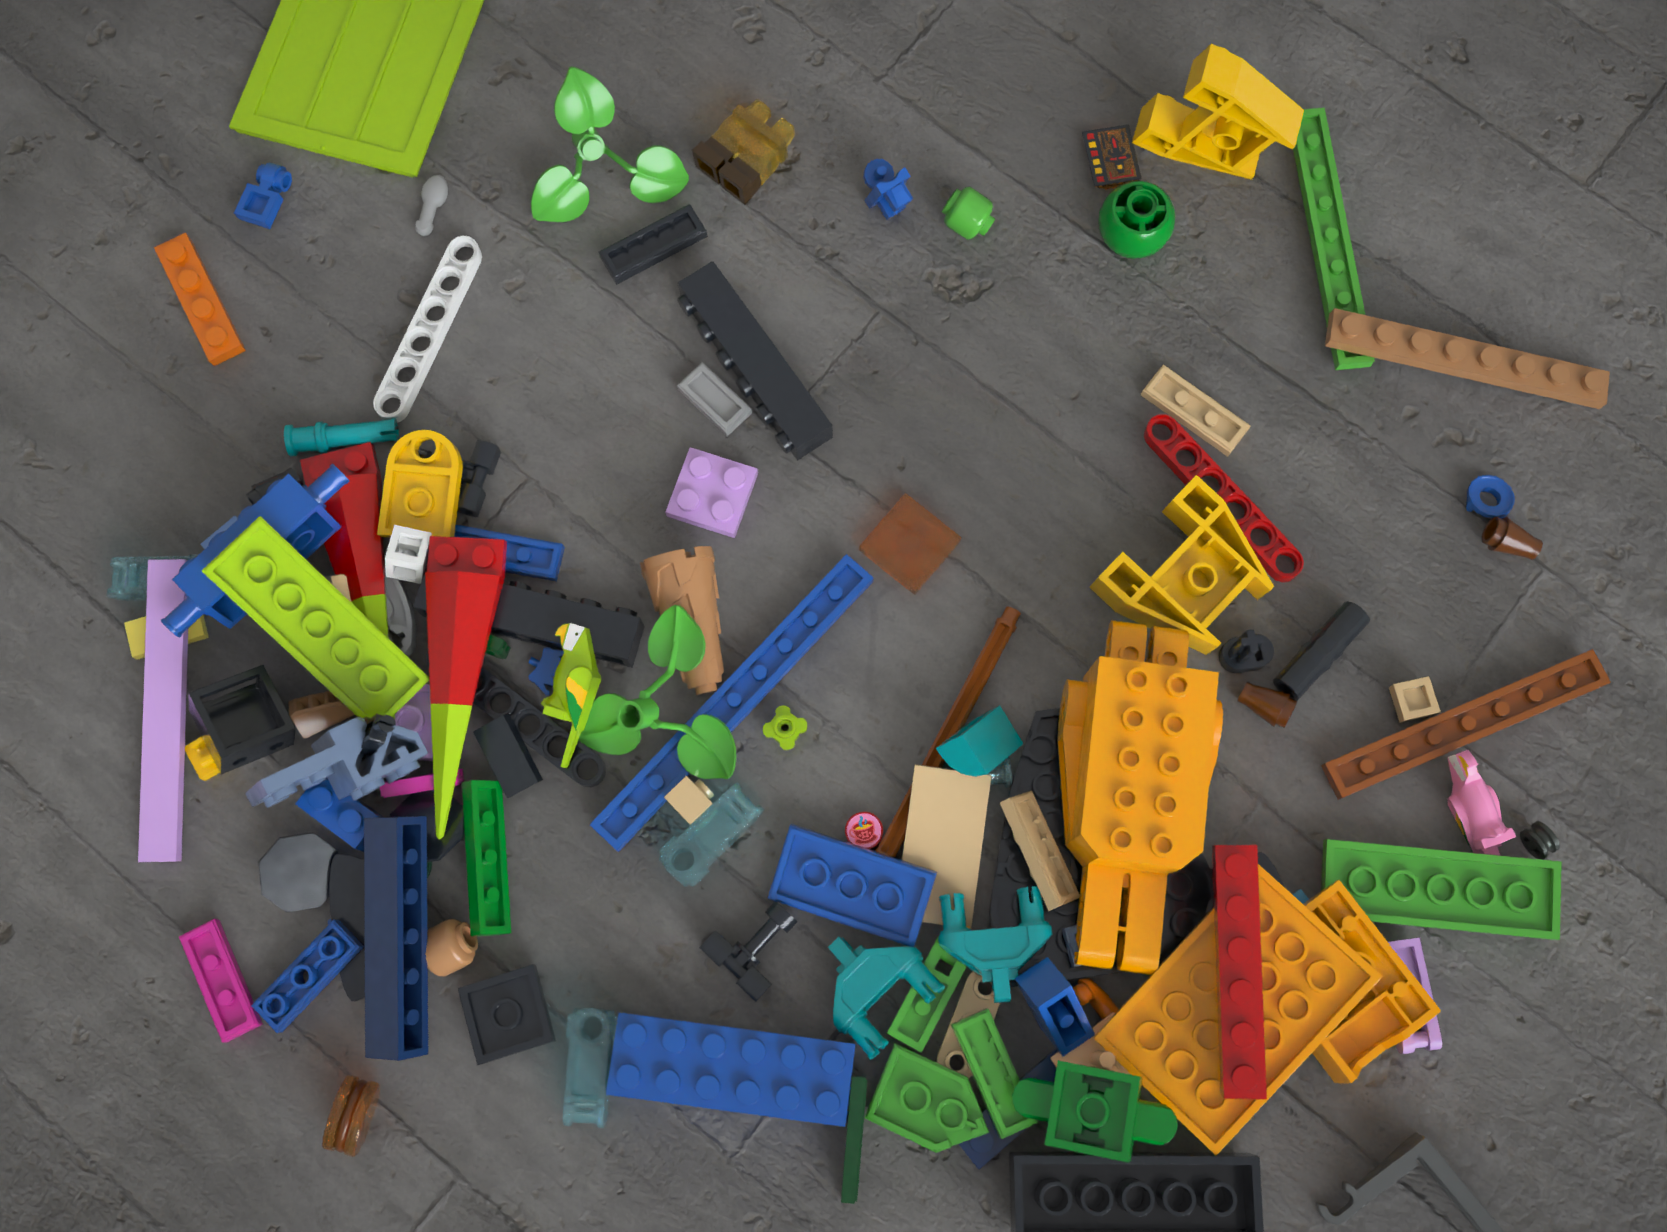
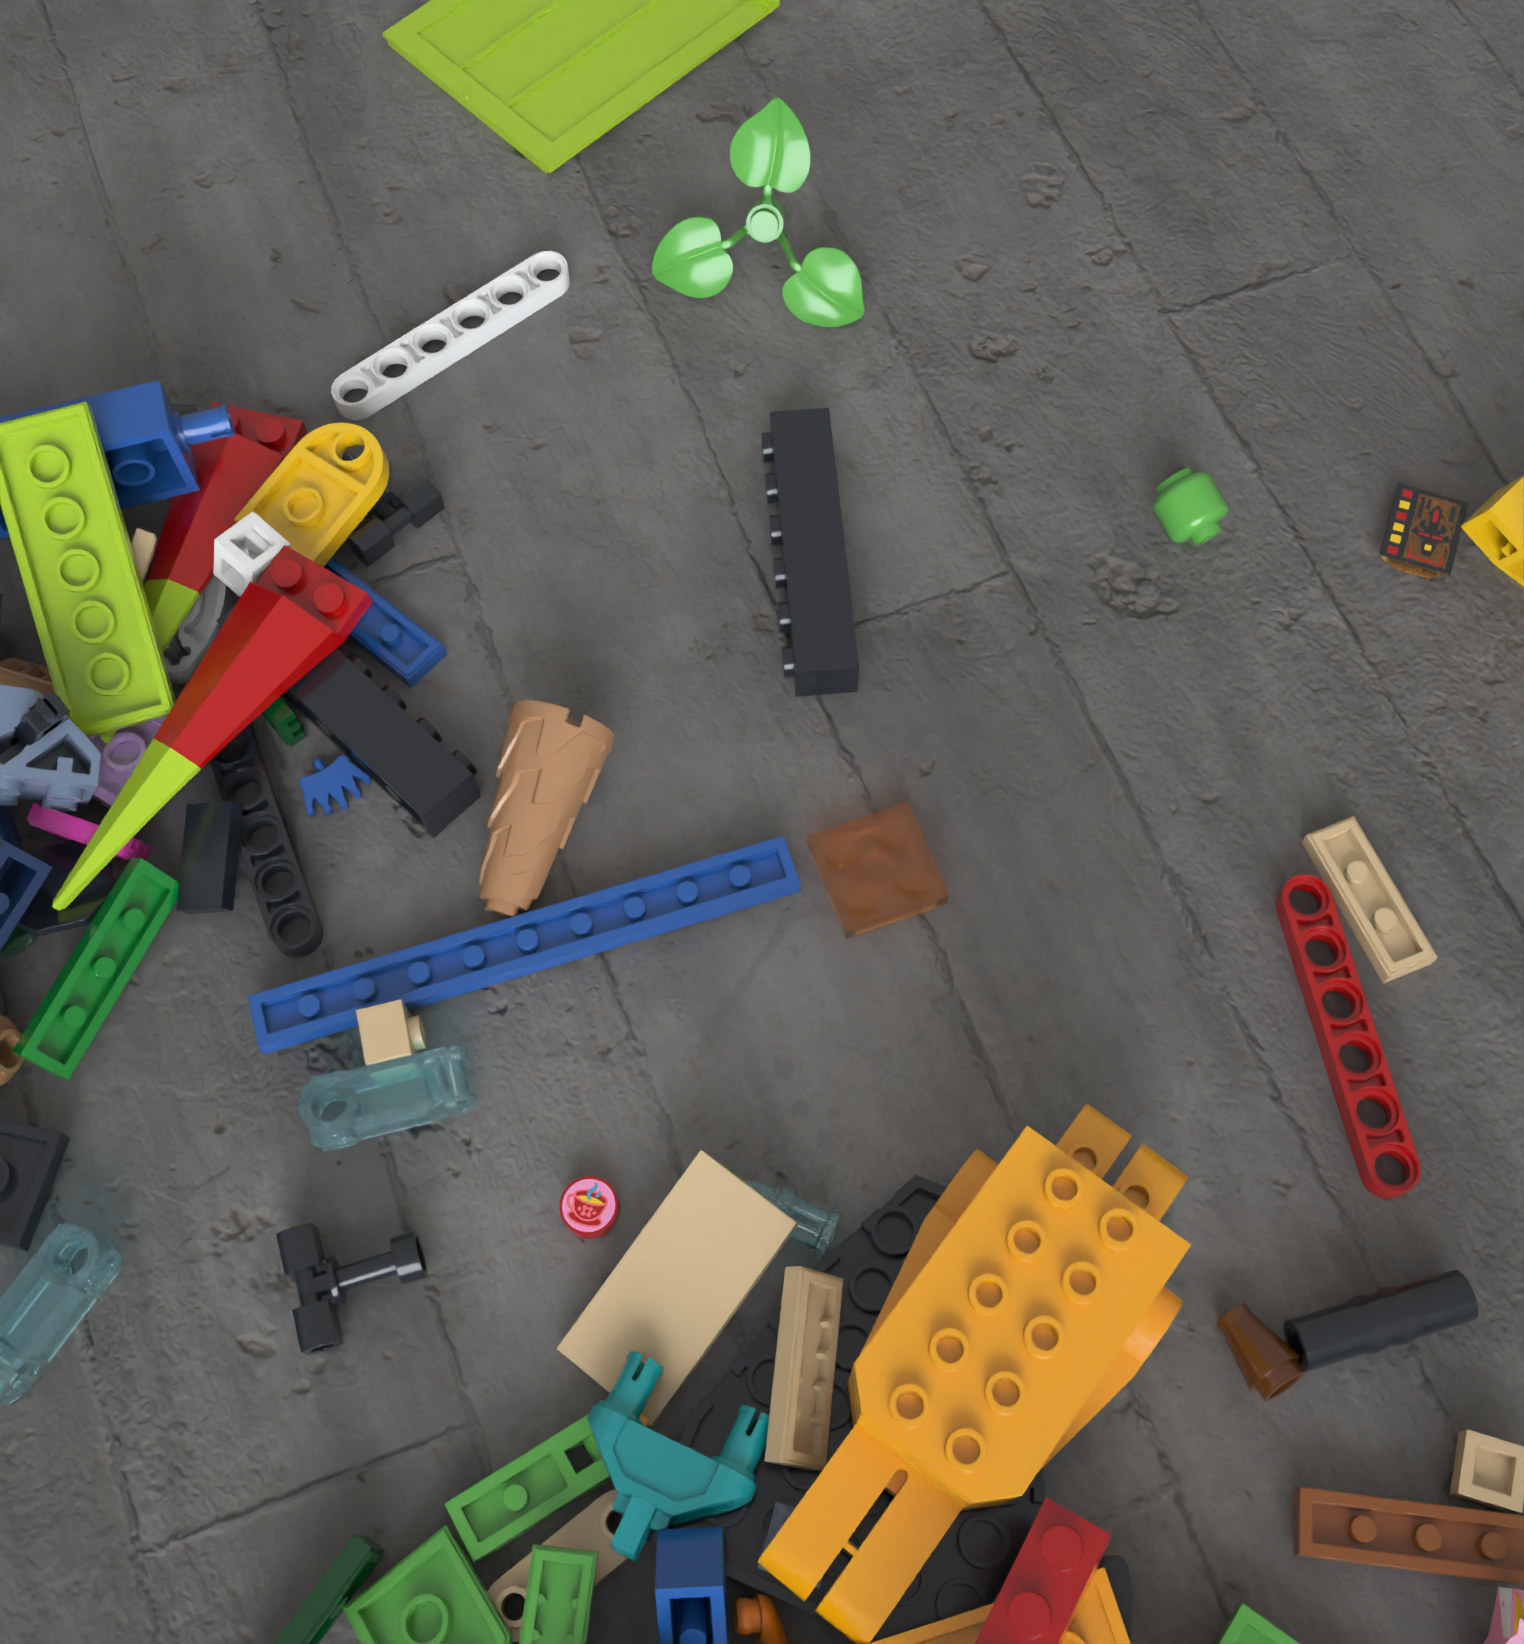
camera: 30 degrees right, 10 degrees down
(199, 299) = (228, 190): orange plate -> none
(262, 202) = (362, 121): blue plate -> none
(324, 437) = (257, 392): teal pin -> none
(433, 196) = (554, 200): light grey piece -> none
(573, 684) = (339, 813): lime animal -> none
(616, 722) = (365, 882): bright green plant -> none
(653, 244) = (773, 363): black plate -> none
(712, 492) = (664, 679): lavender plate -> none
(714, 399) = (736, 573): light grey tile -> none
(731, 1069) = (211, 1427): blue brick -> none
(744, 150) = (949, 311): clear yellow hips -> none
(785, 738) = (575, 1028): lime plate -> none
(852, 885) = (527, 1271): blue tile -> none
(865, 978) = (461, 1411): teal connector -> none
(887, 191) = (1098, 427): blue hips -> none
(956, 718) = (790, 1134): dark orange piece -> none
(981, 744) = (810, 1174): teal brick -> none
(1128, 231) = (1405, 607): green wheel -> none
(1196, 577) = (1244, 1114): yellow wedge -> none
(1239, 653) = (1253, 1256): black piece -> none

